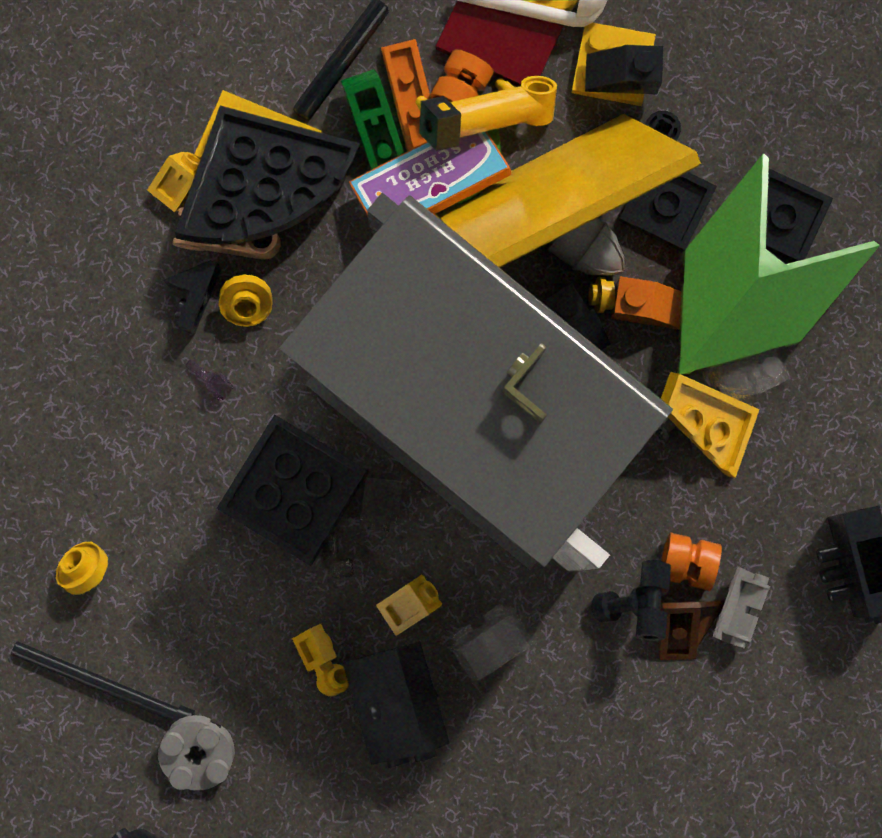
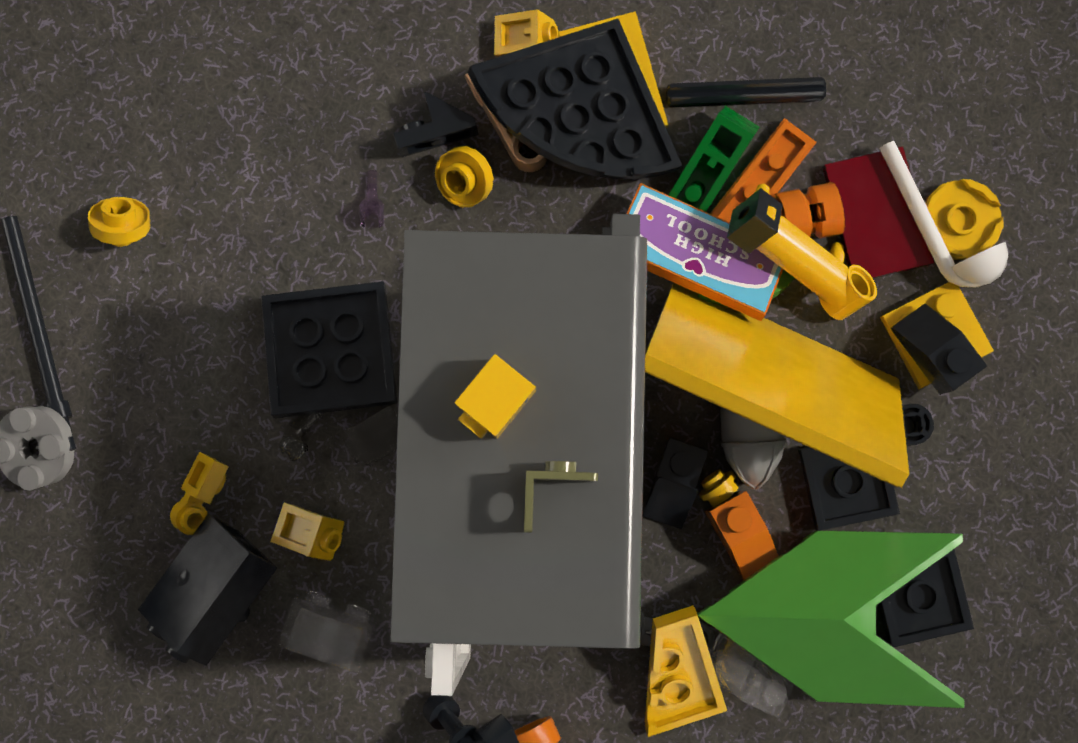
camera: 50 degrees right, 0 degrees up
(439, 373) = (494, 398): none -> yellow brick

